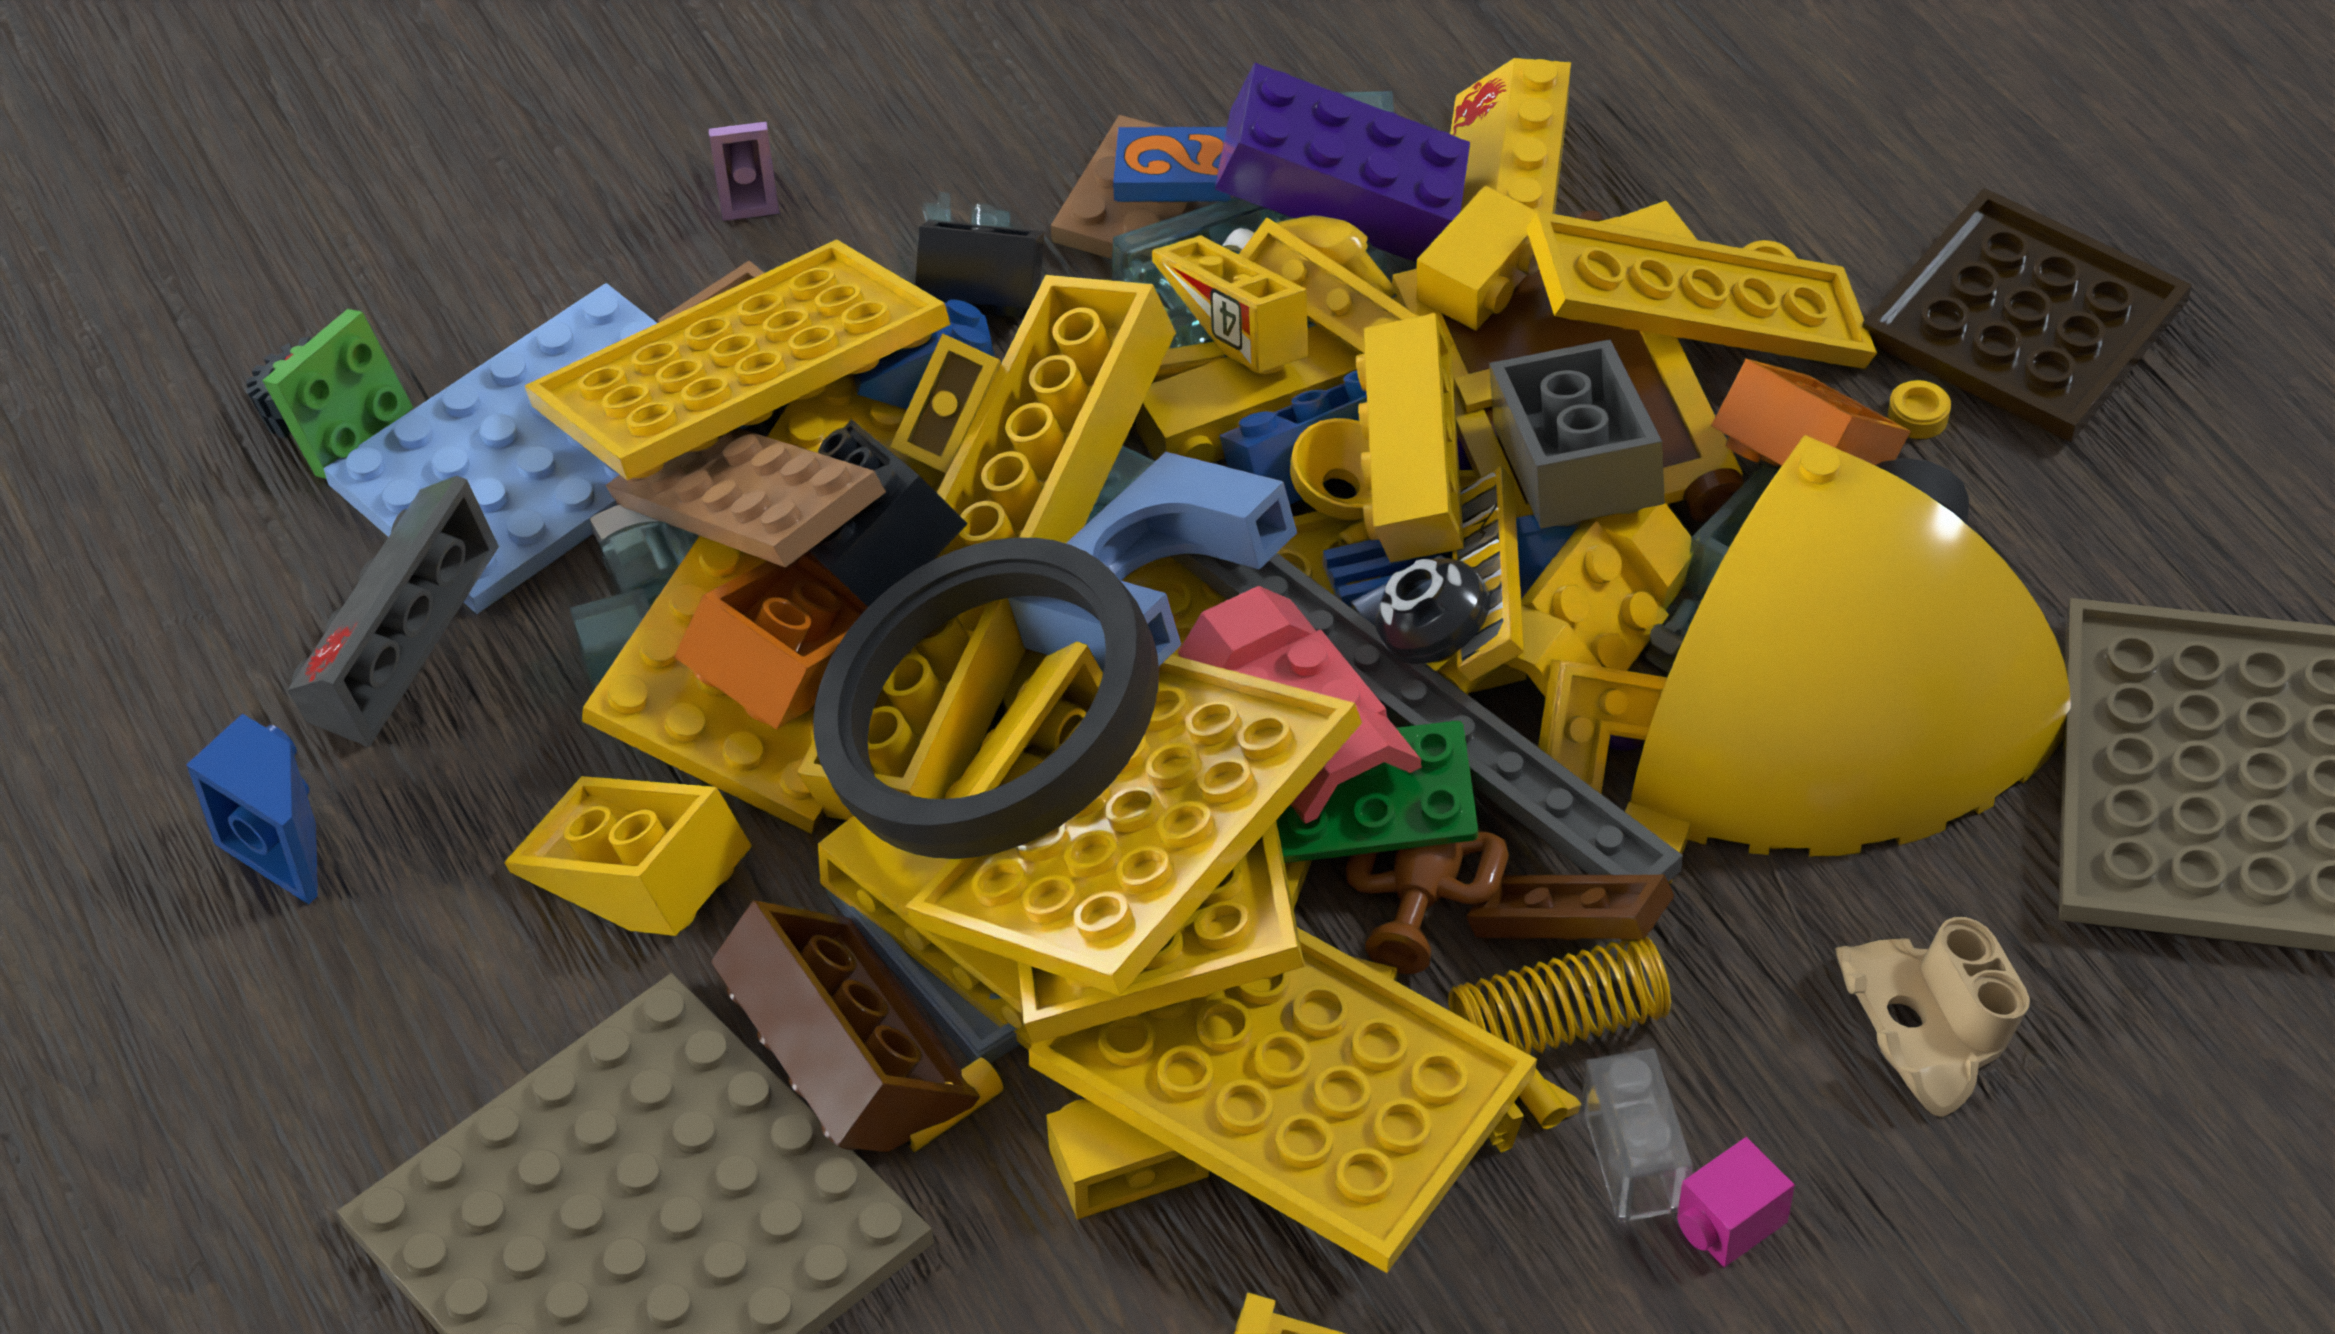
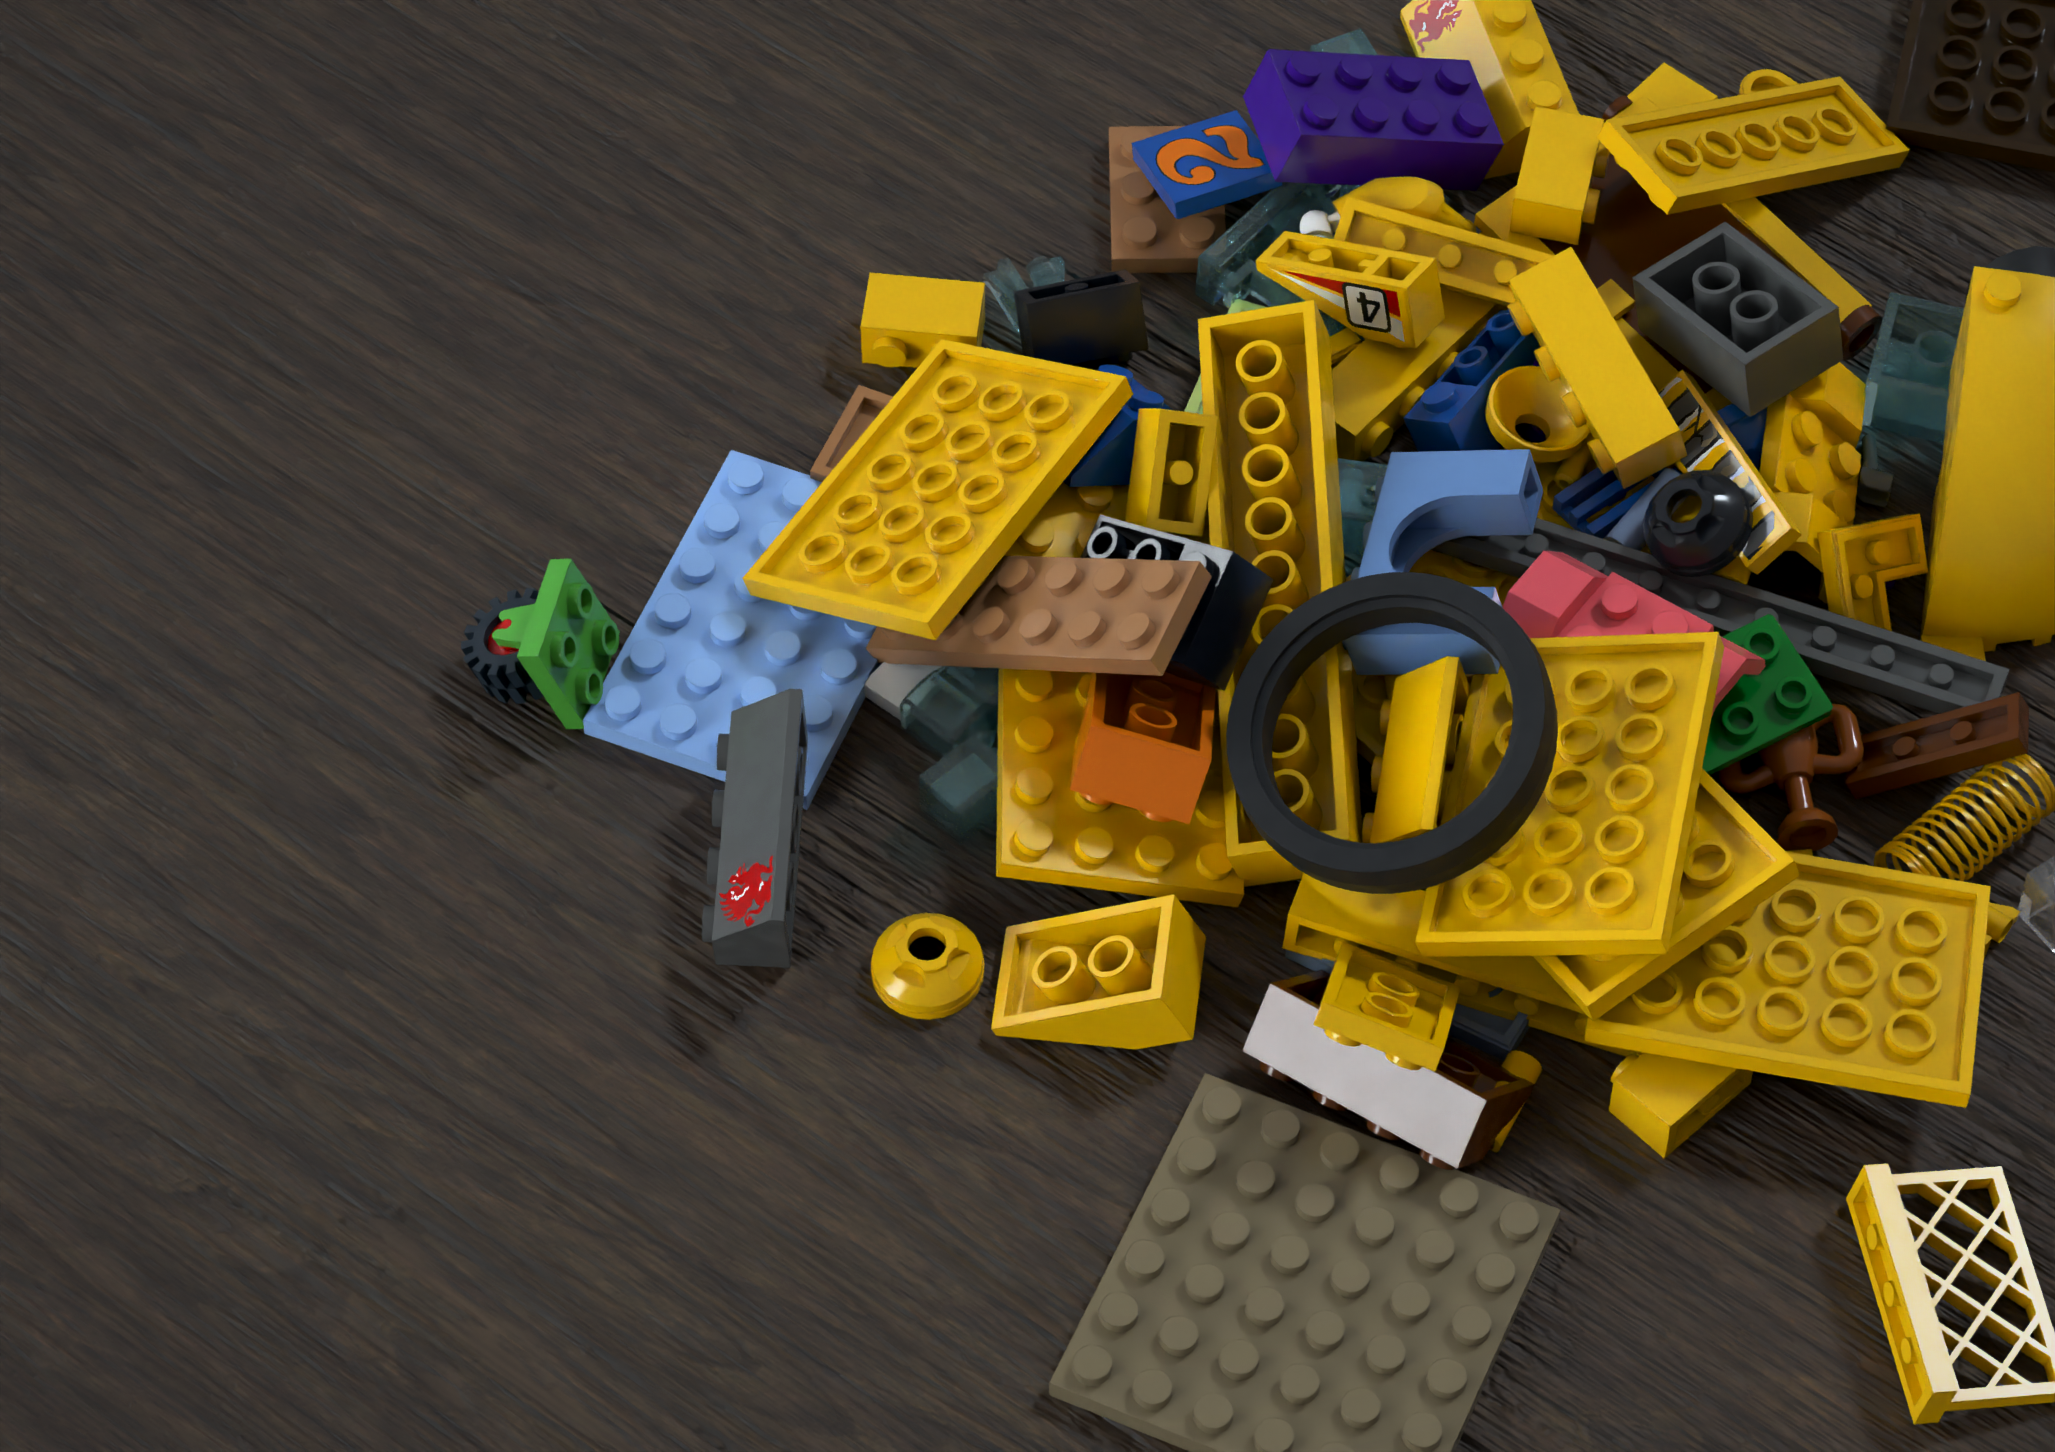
camera: 25 degrees left, 5 degrees up
(259, 804) = (765, 1055): blue slope -> none
(493, 803) = (933, 986): none -> yellow piece
(744, 171) = (798, 293): lavender slope -> none
(833, 208) = (912, 314): none -> yellow brick
(847, 961) = (1387, 1008): none -> yellow plate
(1776, 407) = (1914, 249): orange brick -> none
(1920, 408) = (1967, 191): yellow tile -> none

